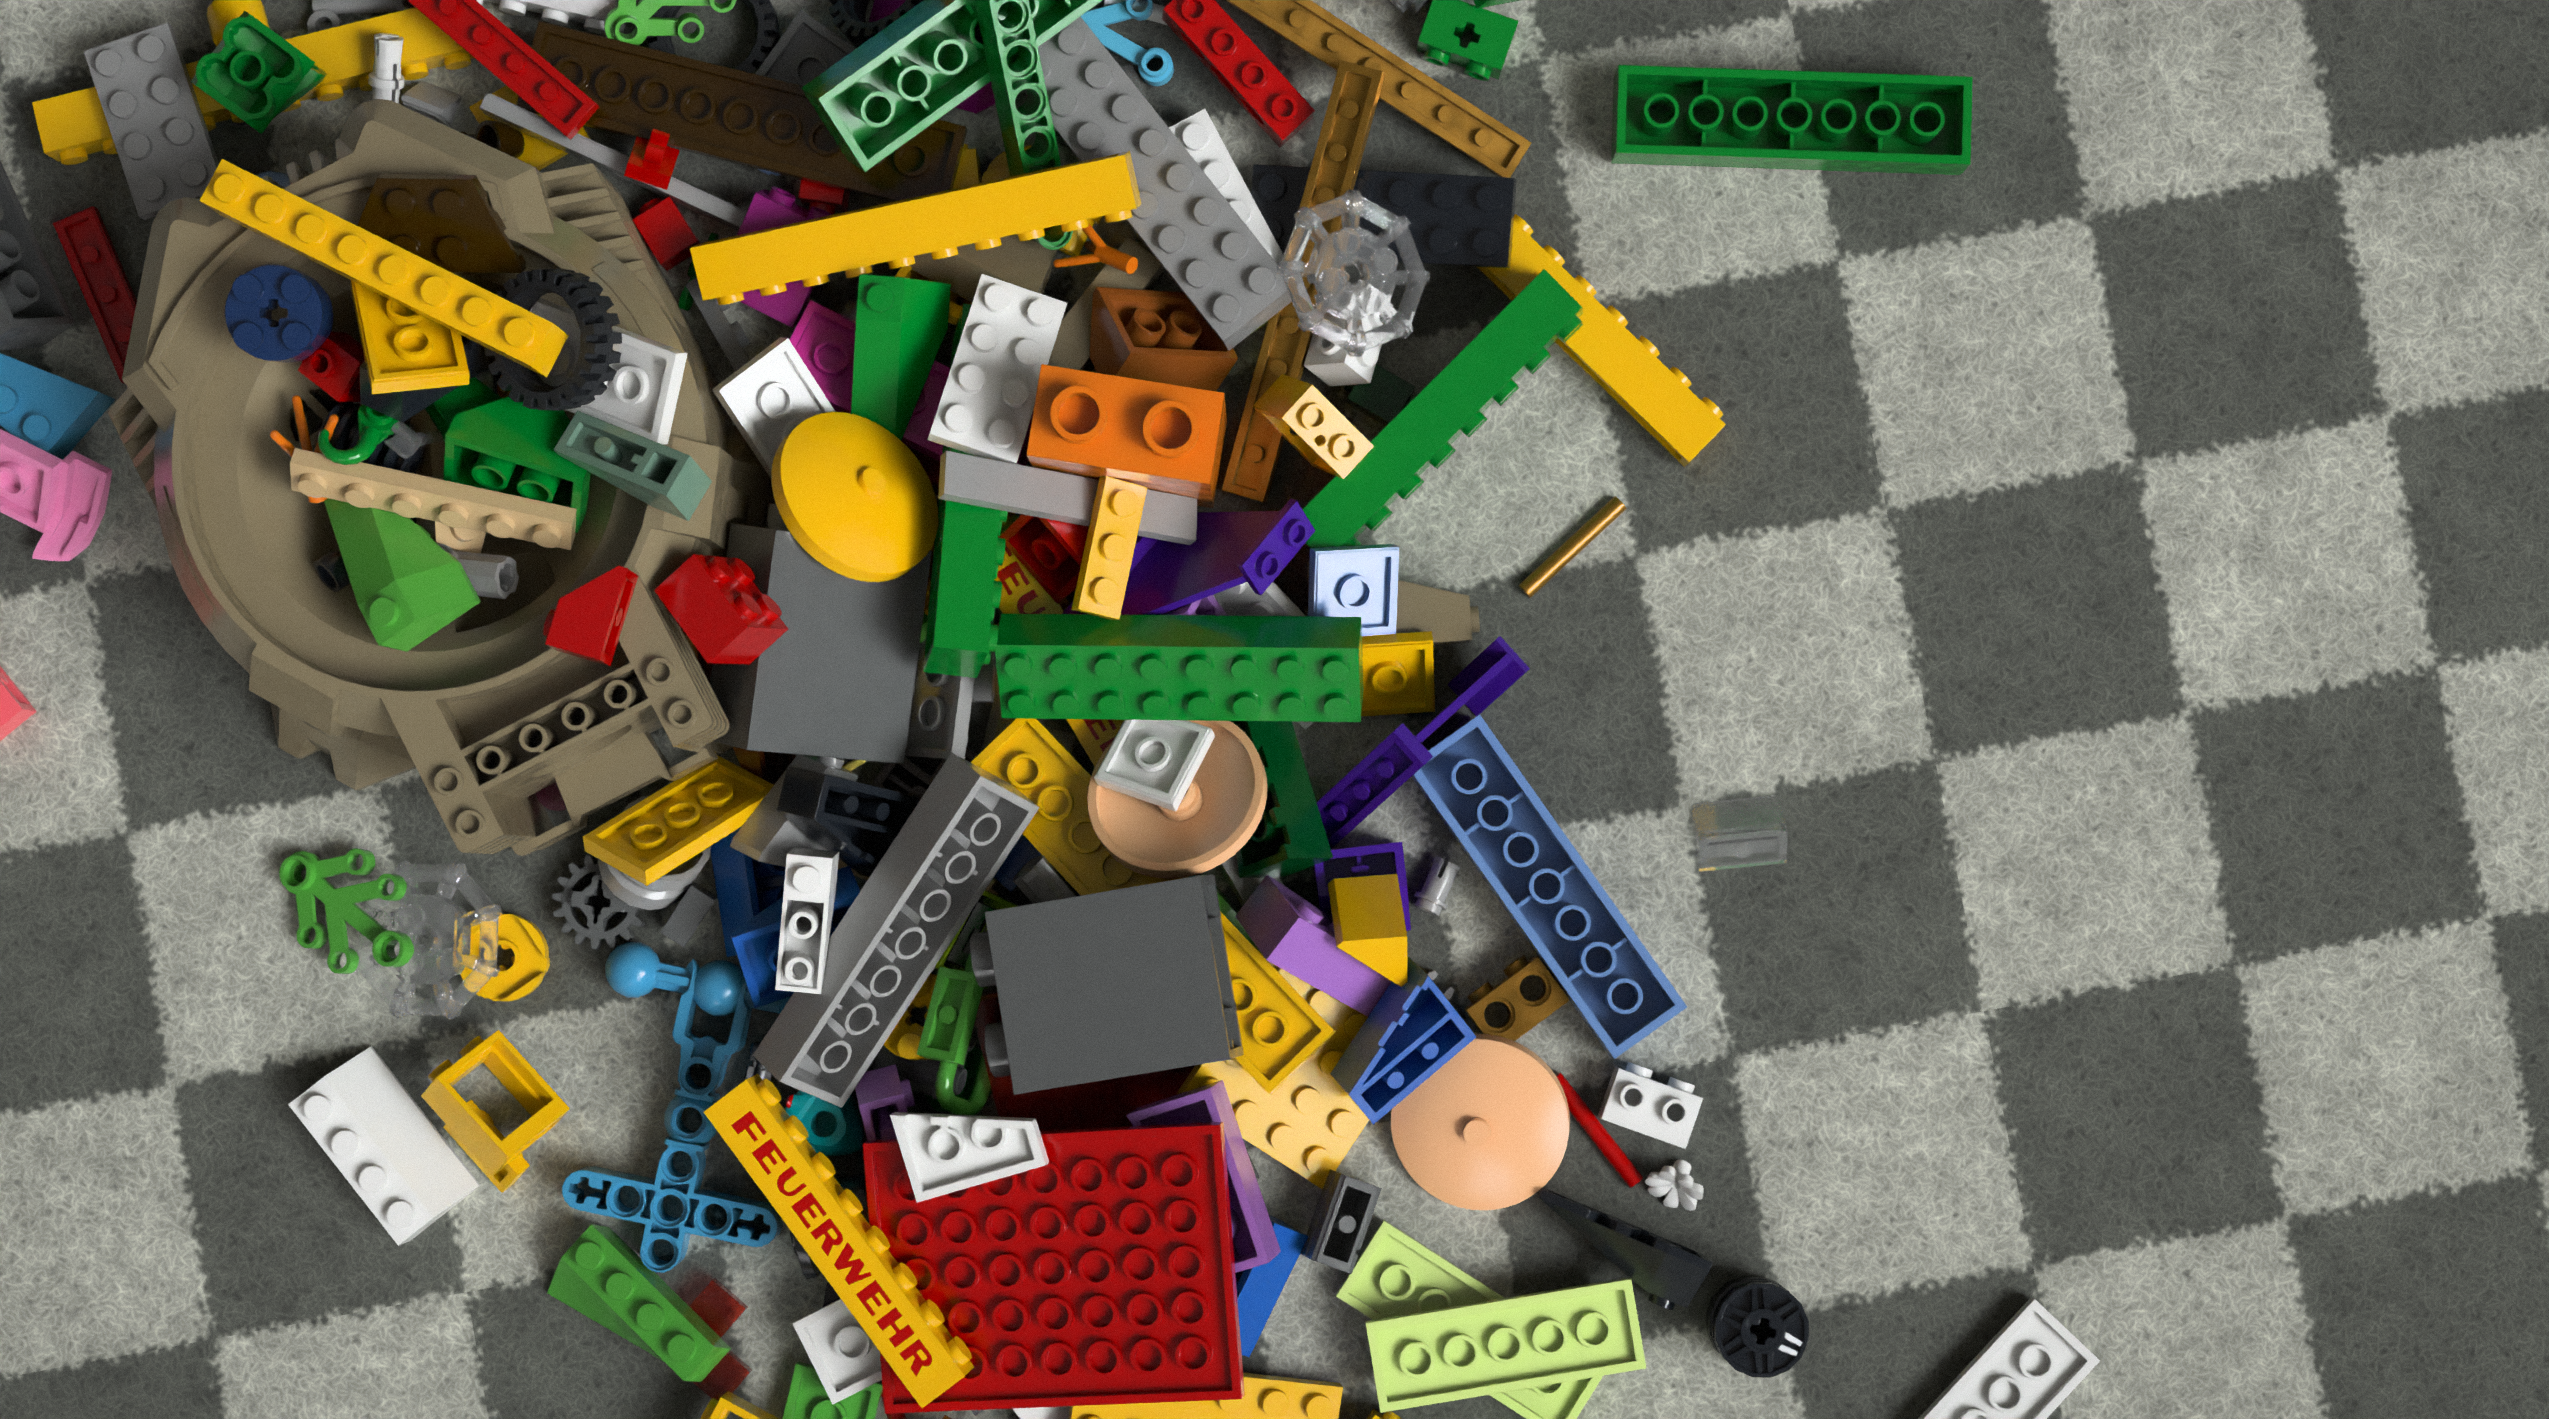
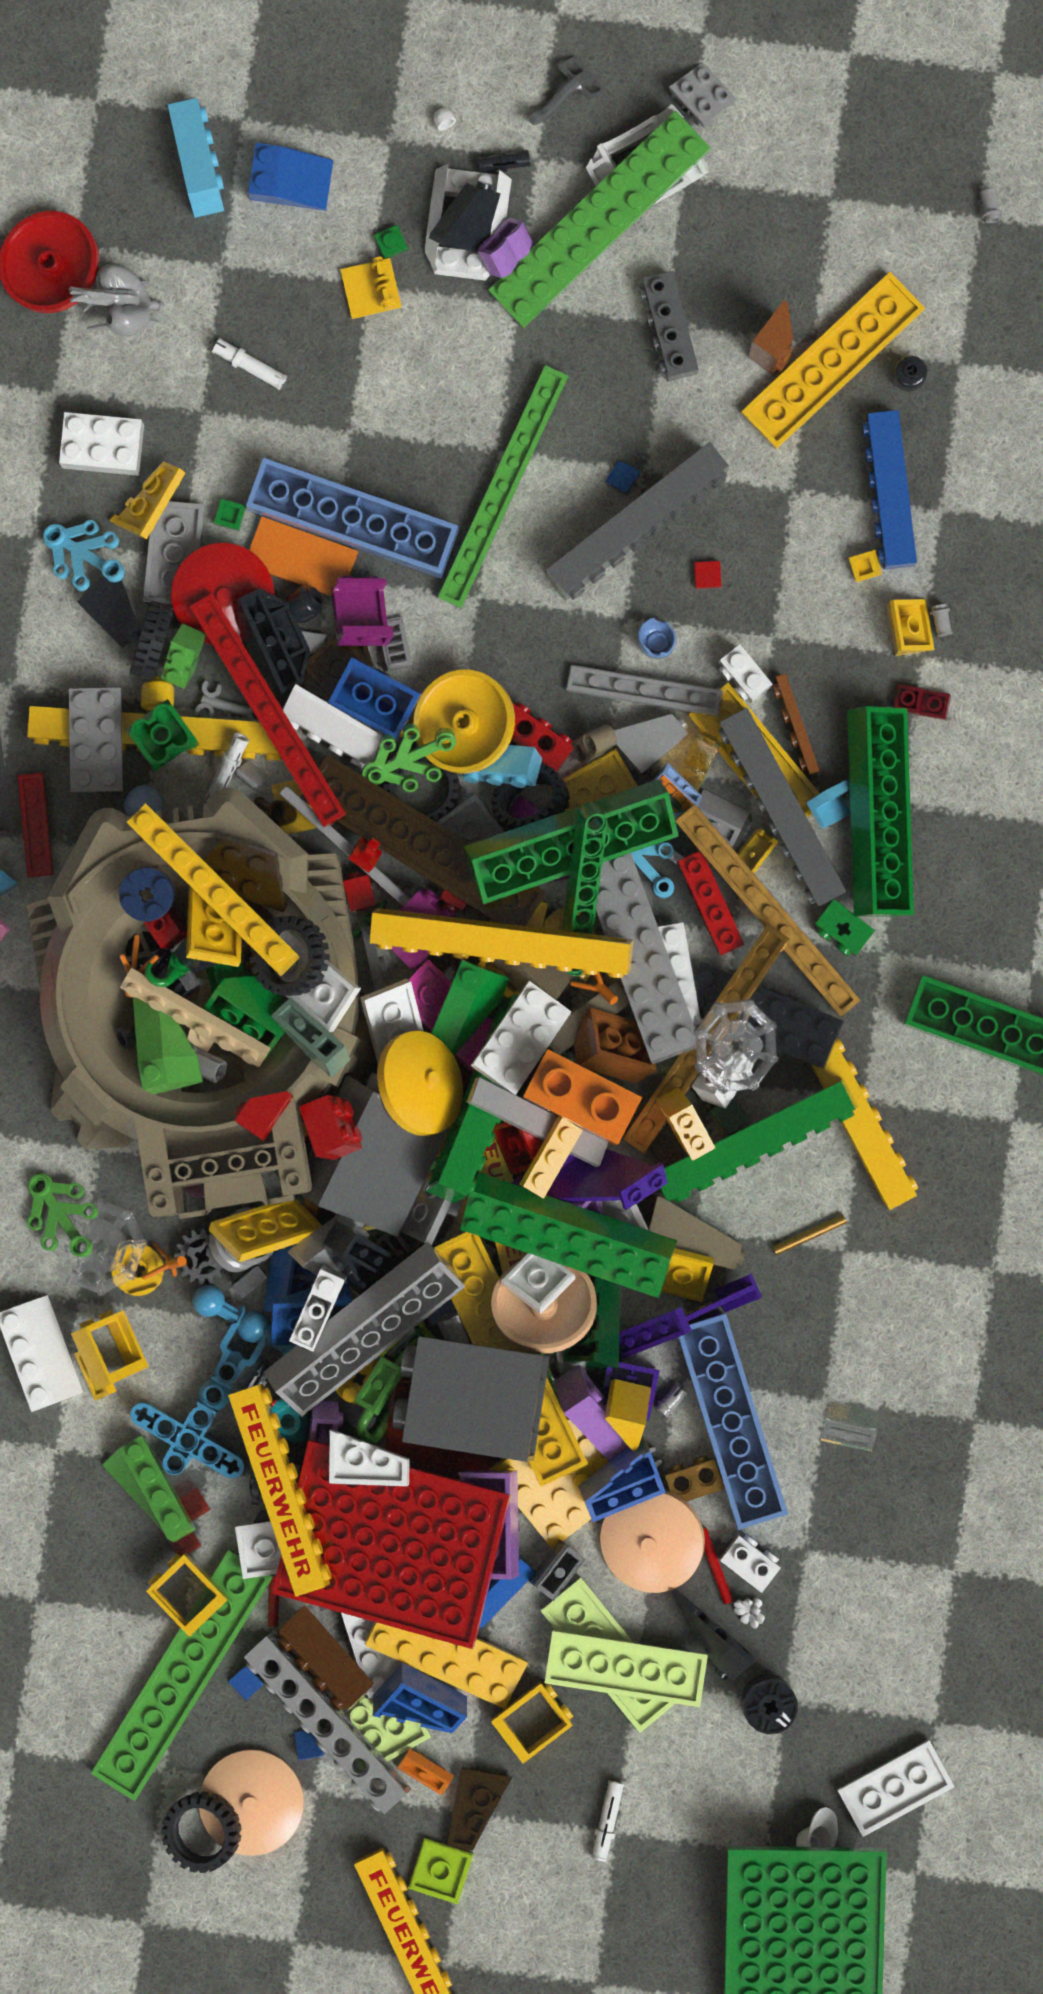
camera: 20 degrees right, 0 degrees up
(549, 929) = (170, 1263): none -> orange plant
(1356, 584) = (680, 1220): plate -> none

